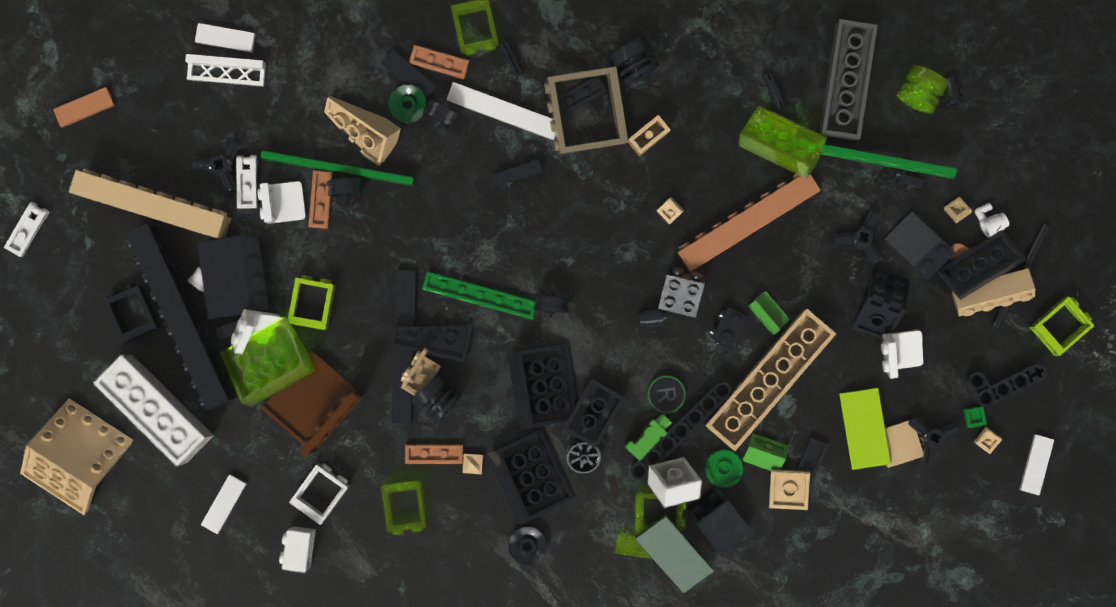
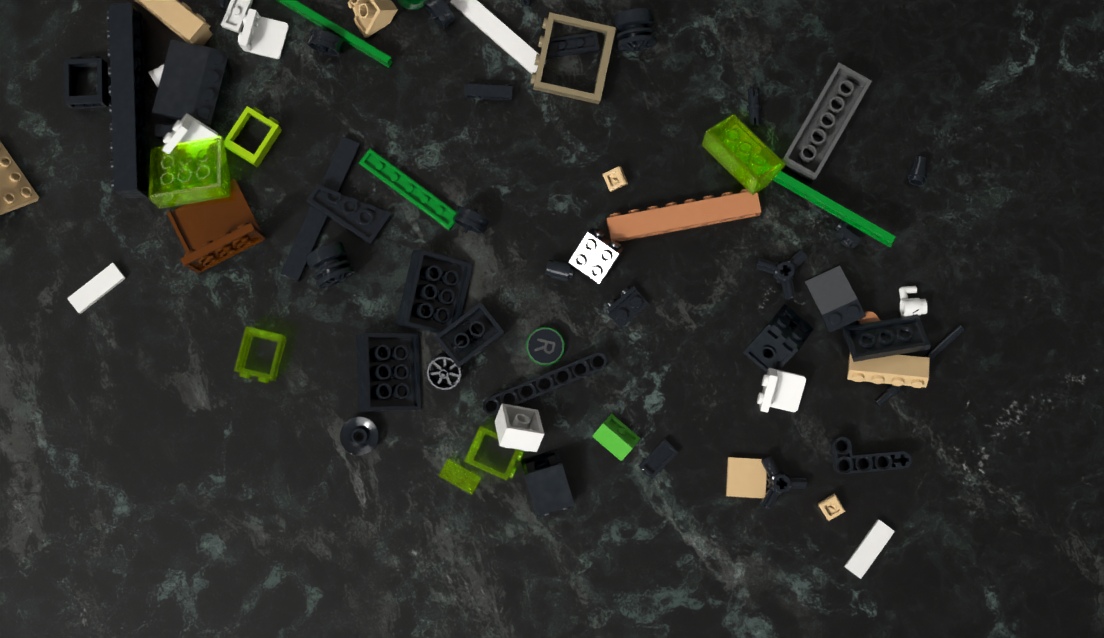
camera: 25 degrees right, 5 degrees down
(153, 409) = (67, 173): white brick -> none
(298, 549) = (145, 354): white brick -> none
(308, 509) = (164, 311): white window -> none
(320, 200) = (298, 48): nougat tile -> none
(420, 374) = (323, 233): tan bracket -> none
(433, 453) = (308, 317): nougat tile -> none
(472, 463) = (340, 340): tan tile -> none
(648, 135) = (621, 102): tan brick -> none
(649, 437) = (512, 378): bright green hips -> none
(674, 553) = (493, 496): tile -> none
(723, 468) = (572, 436): green tile -> none
(769, 312) = (670, 308): bright green panel -> none
(770, 379) = (646, 368): tan brick -> none
(789, 489) = (625, 479): tan tile -> none
(865, 428) = (719, 450): lime tile -> none
(922, 89) = (892, 156): clear neon green wheel -> none
(957, 209) = (883, 280): tan tile -> none
(975, 416) = (827, 480): green tile -> none
(1048, 340) = (923, 432): lime window -> none

